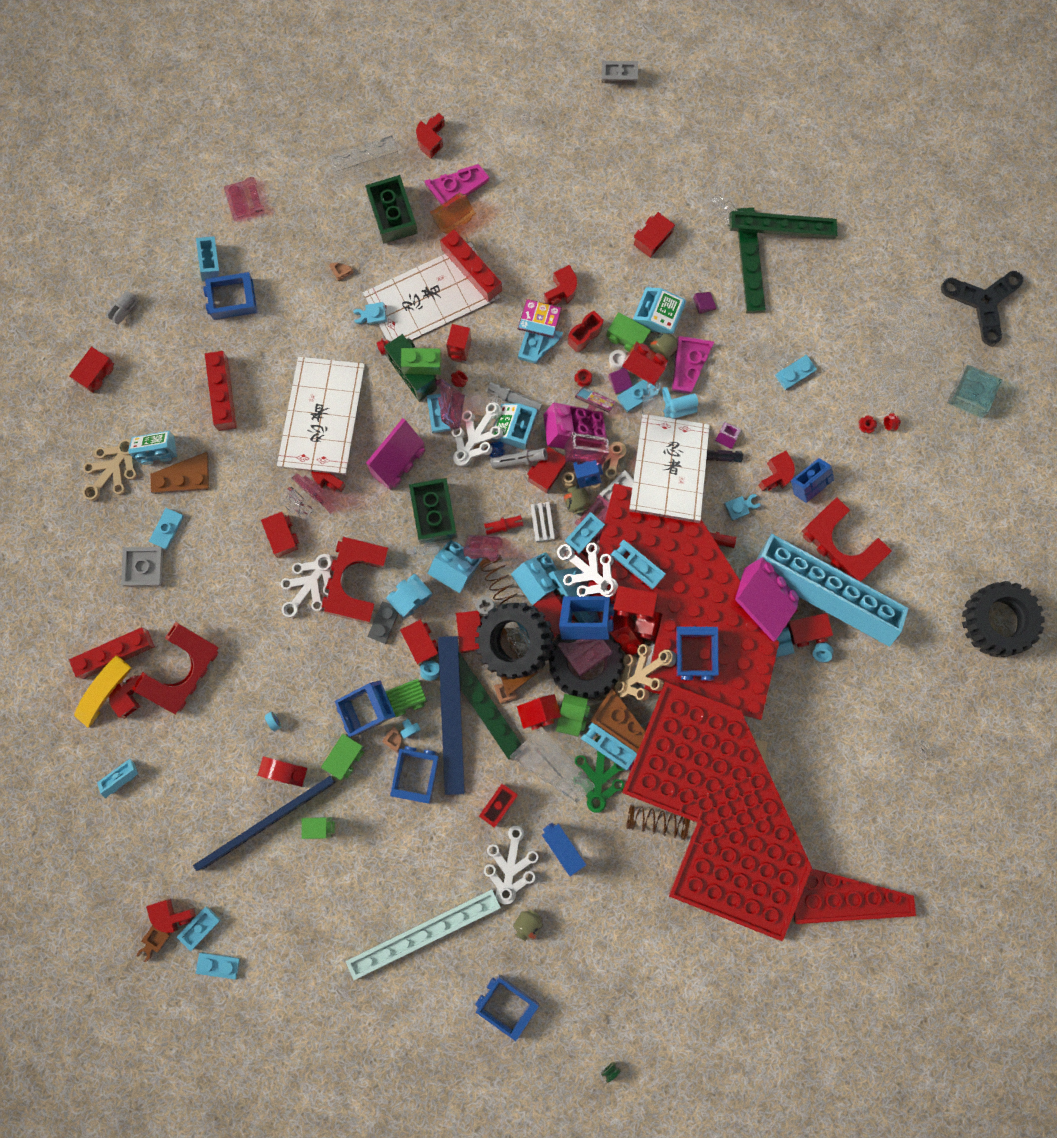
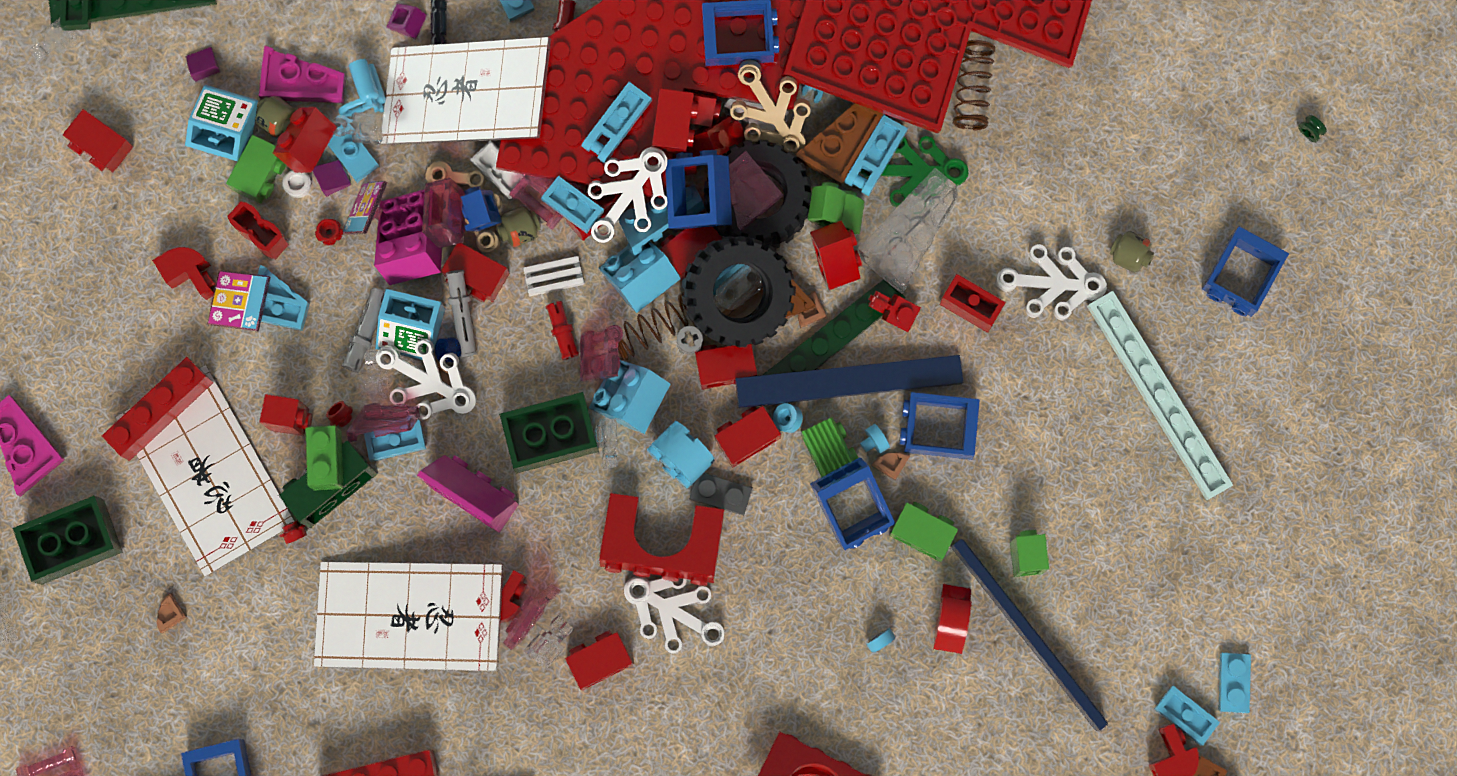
camera: 90 degrees left, 0 degrees up
(374, 314) = (240, 552): medium azure plate -> none
(453, 213) = (71, 444): clear orange brick -> none
(496, 752) = (898, 312): none -> red plate
(563, 848) = (1024, 208): blue window -> none

